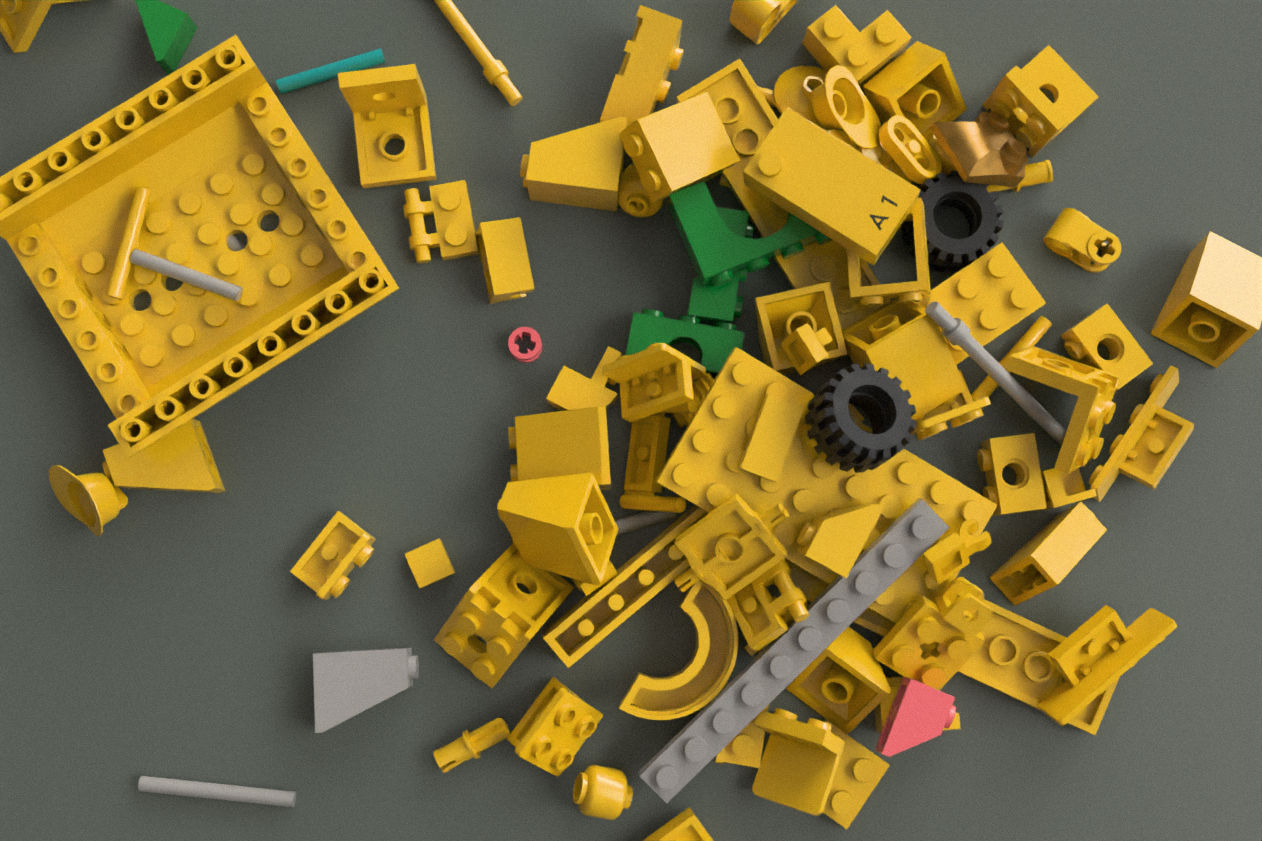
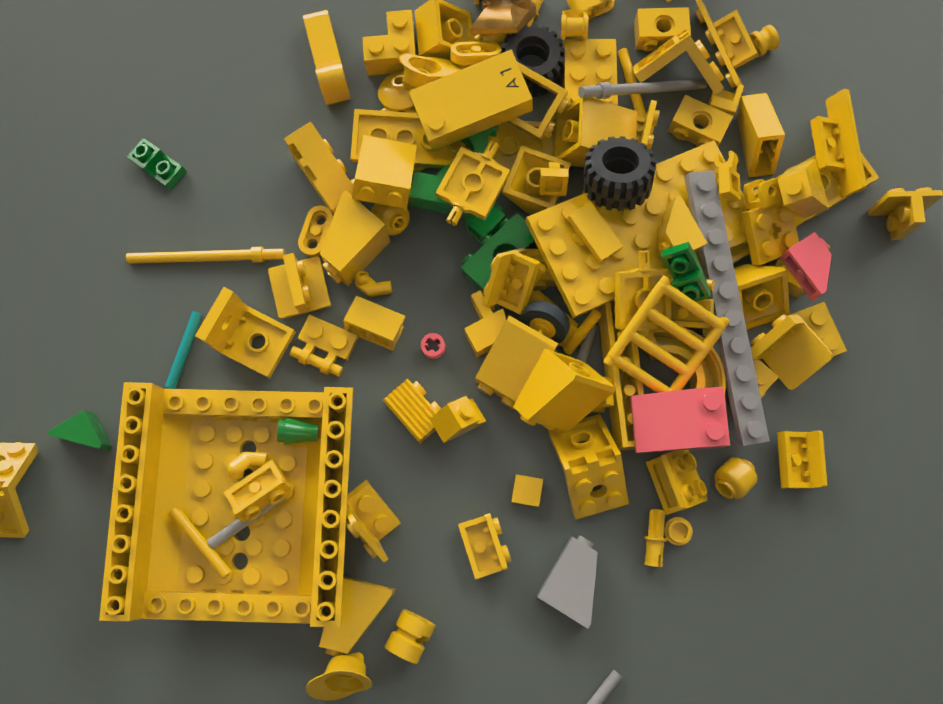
camera: 45 degrees left, 5 degrees down
(174, 542) = (409, 638): none -> yellow wheel
(222, 264) = (257, 491): none -> yellow bracket
(247, 226) = (243, 461): none -> yellow arm
(273, 407) = (370, 518): none -> yellow bracket
(316, 258) = (295, 431): none -> green cone
(434, 374) = (413, 409): none -> yellow brick
(454, 430) = (457, 418): none -> yellow arch
(489, 145) = (299, 286): none -> yellow bracket
(497, 765) = (678, 531): none -> yellow plate
(545, 226) = (370, 287): none -> yellow arm
(565, 115) = (314, 232): none -> yellow plate
(614, 683) = (680, 420): none -> coral slope
(631, 453) = (547, 320): none -> black wheel
(715, 560) = (647, 311): none -> yellow bar
(732, 257) = (473, 183): none -> yellow plate
(790, 581) = (686, 271): none -> green slope
(1005, 649) = (803, 189): none -> yellow slope
(1029, 239) = (574, 24): none -> yellow piece
(1070, 791) = (904, 209): none -> yellow bracket
(1179, 484) = (765, 40): none -> yellow wheel

